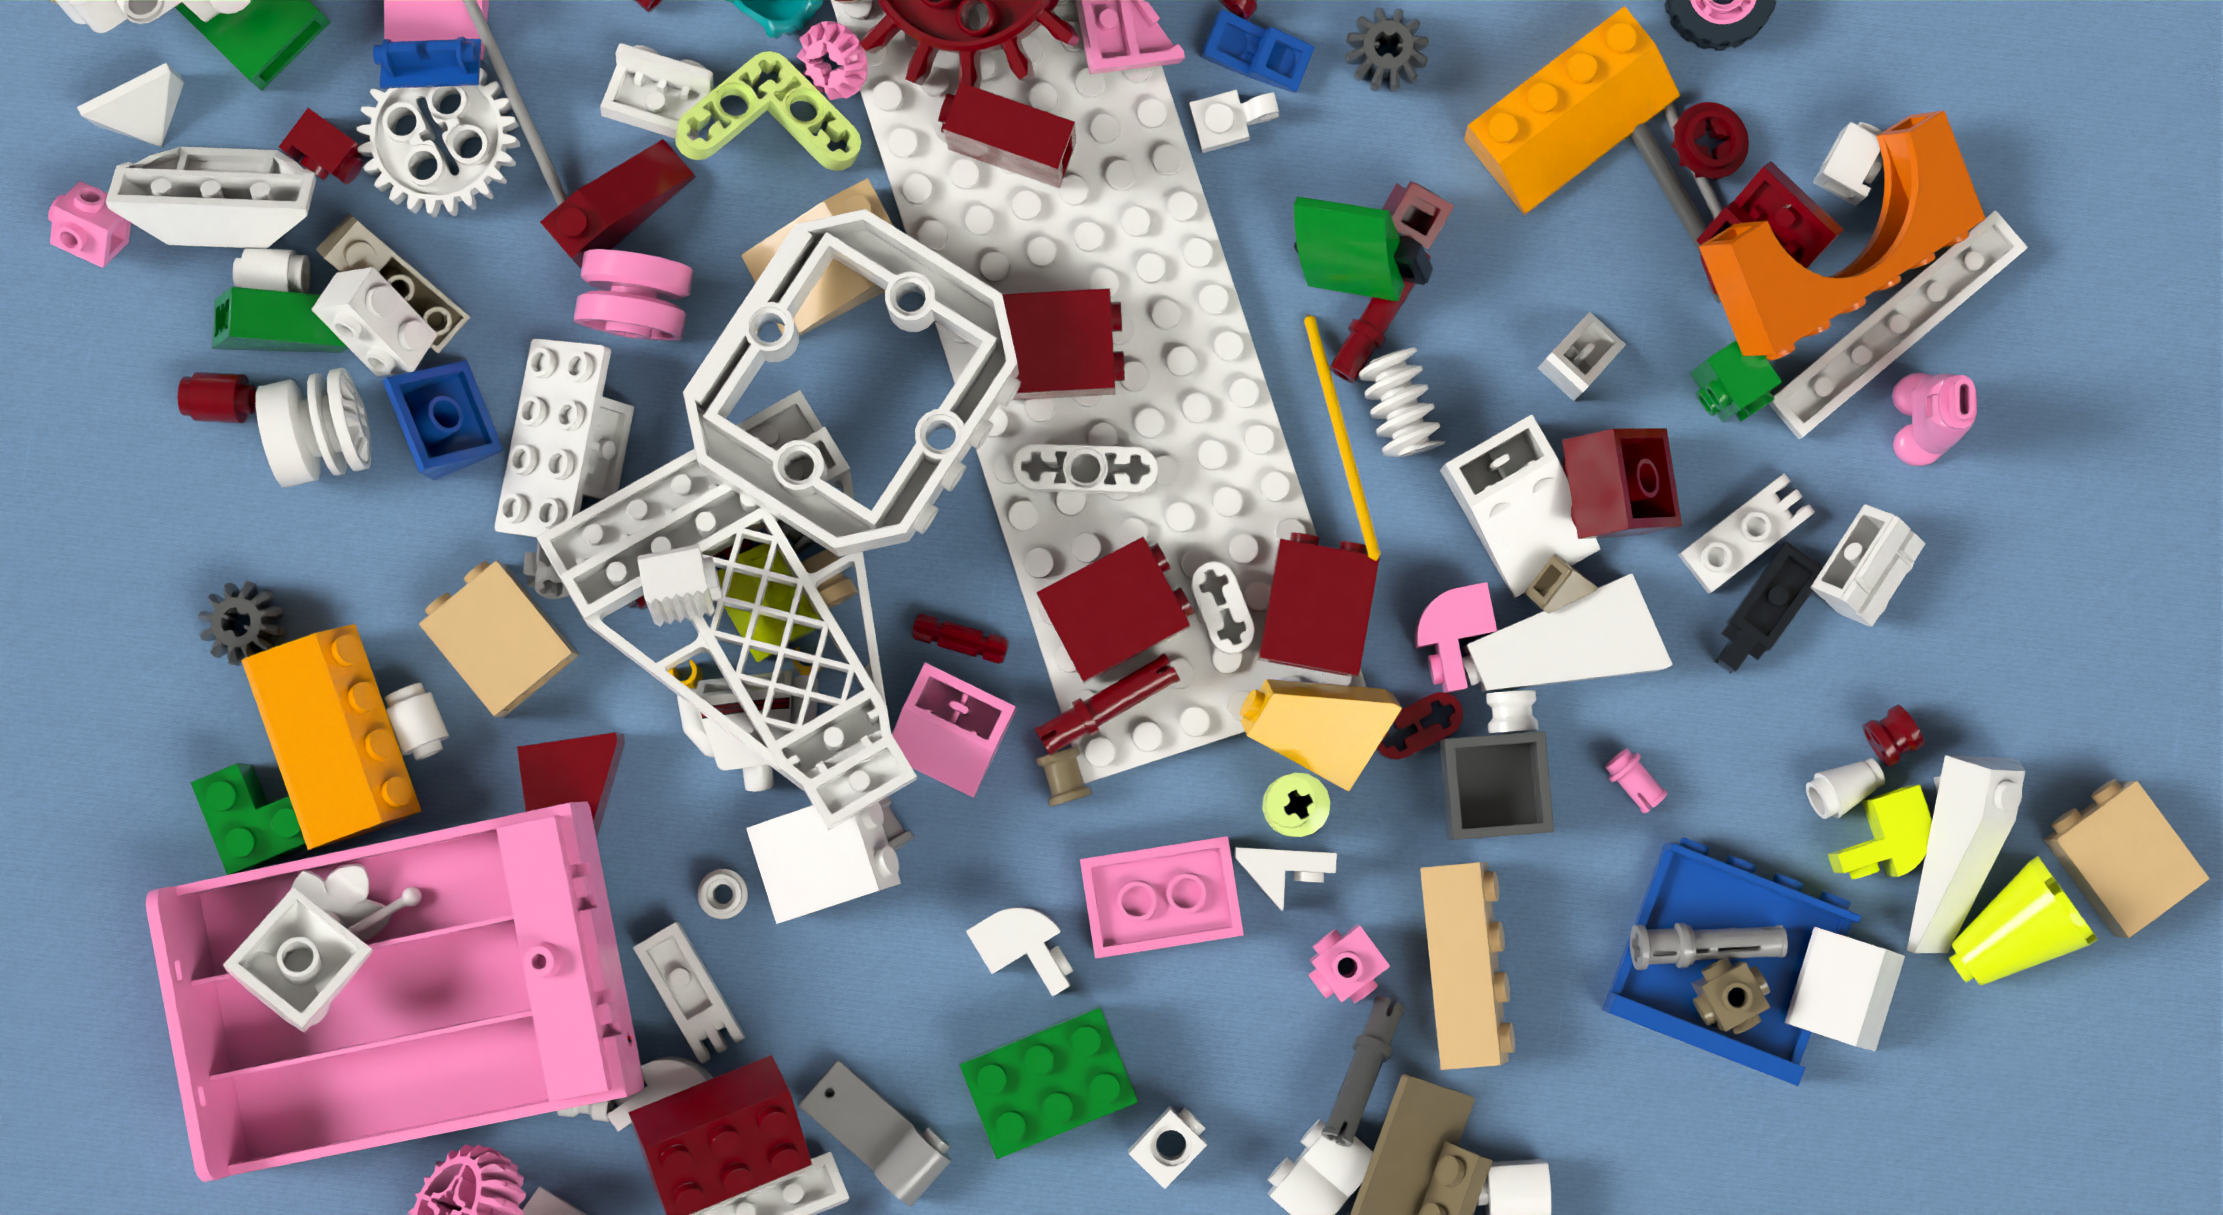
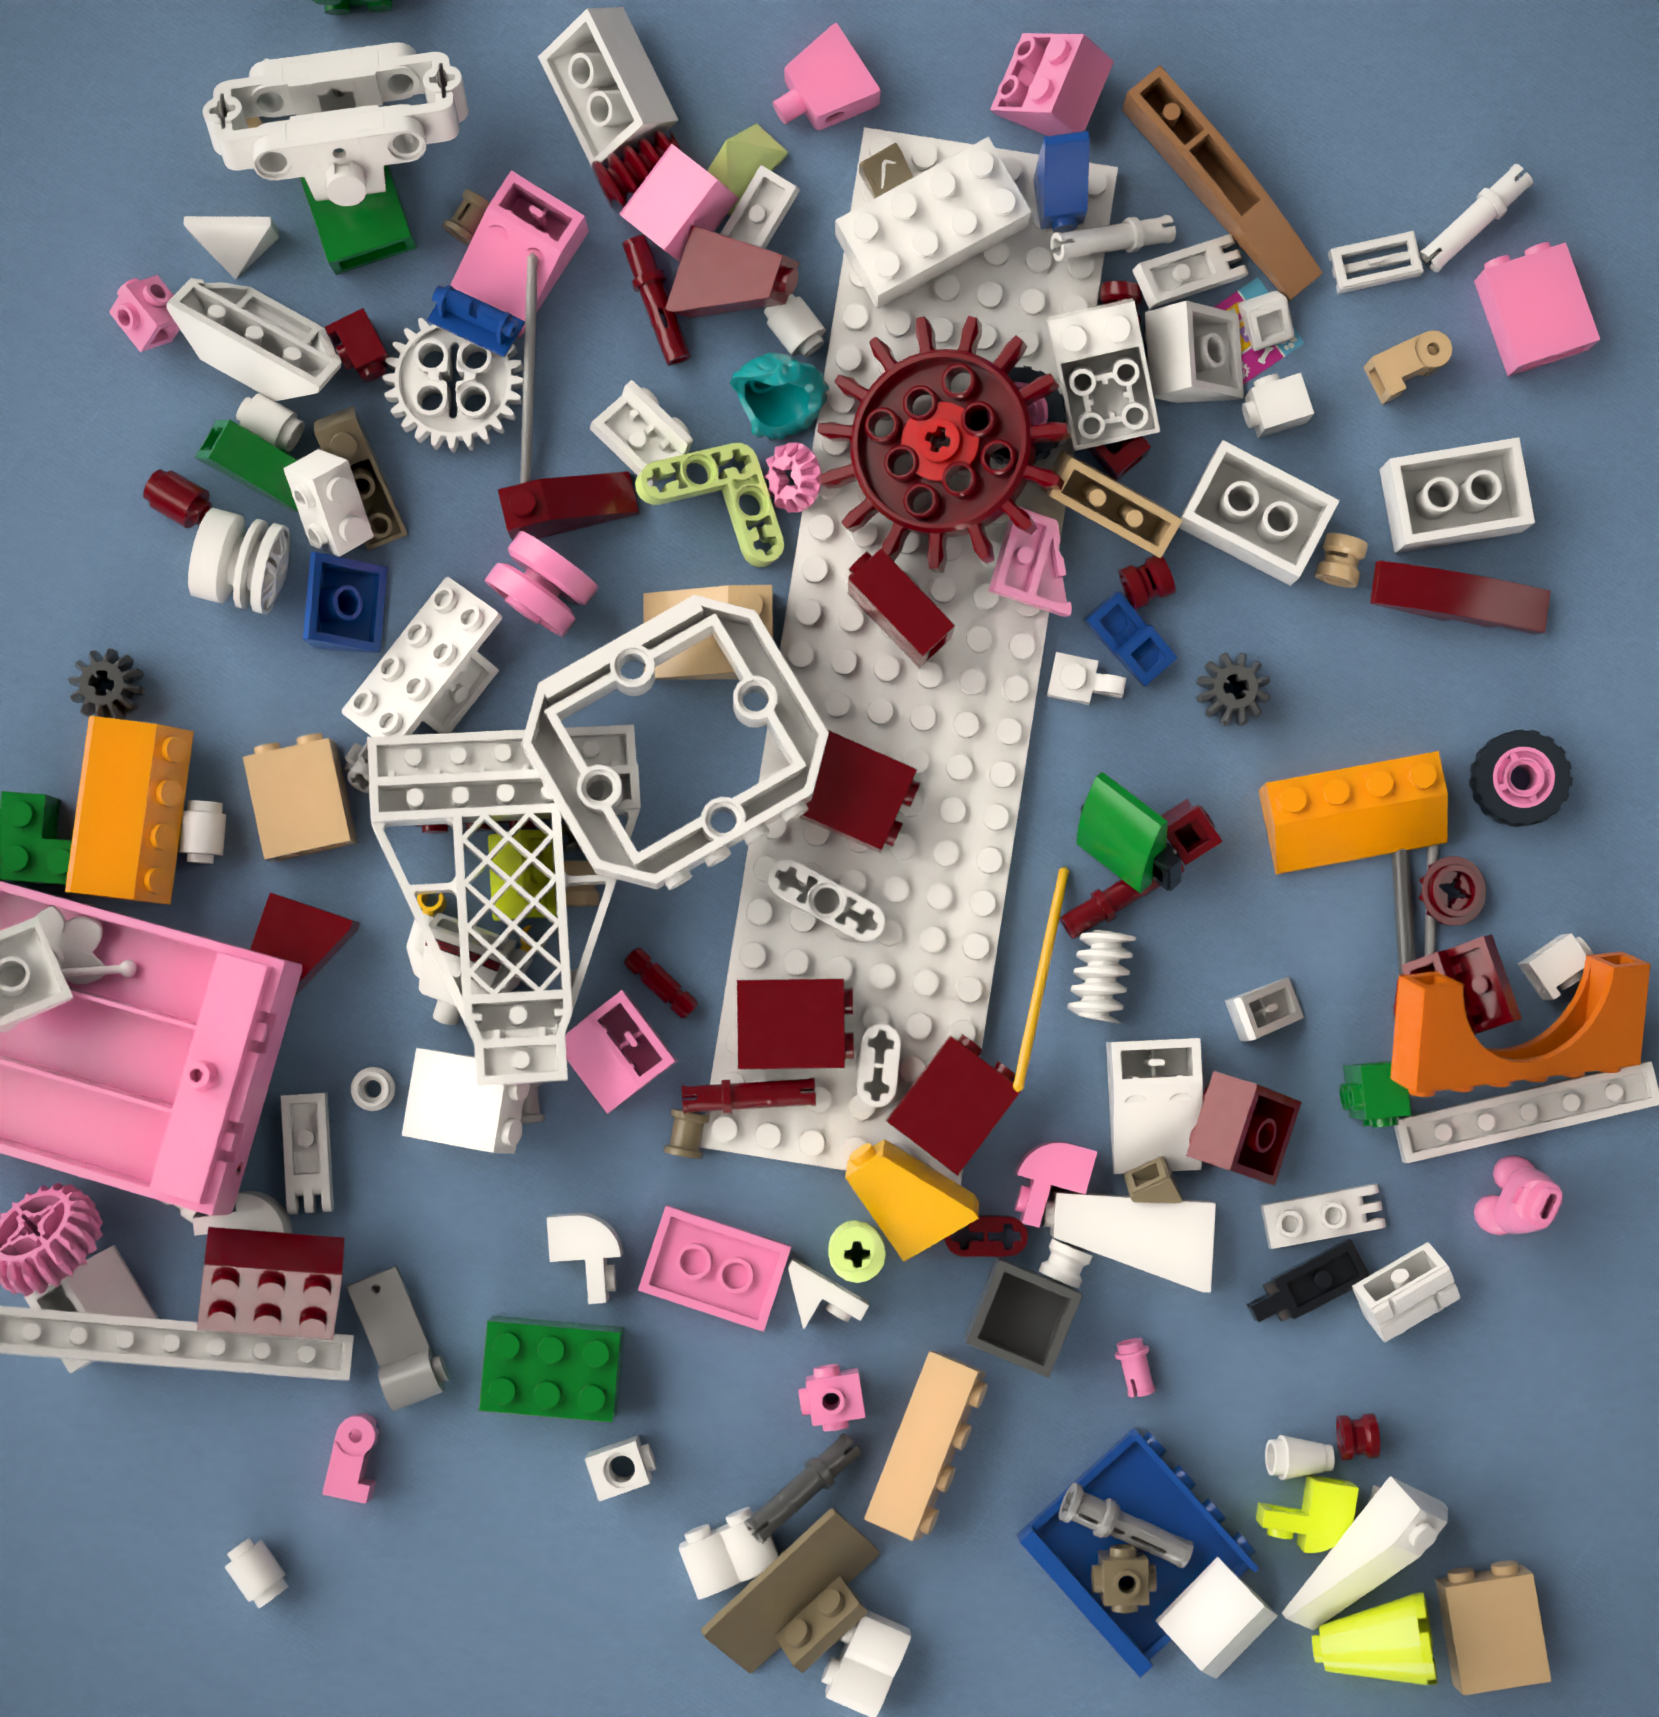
camera: 20 degrees right, 0 degrees up
(679, 584) = (456, 834): white brick -> none

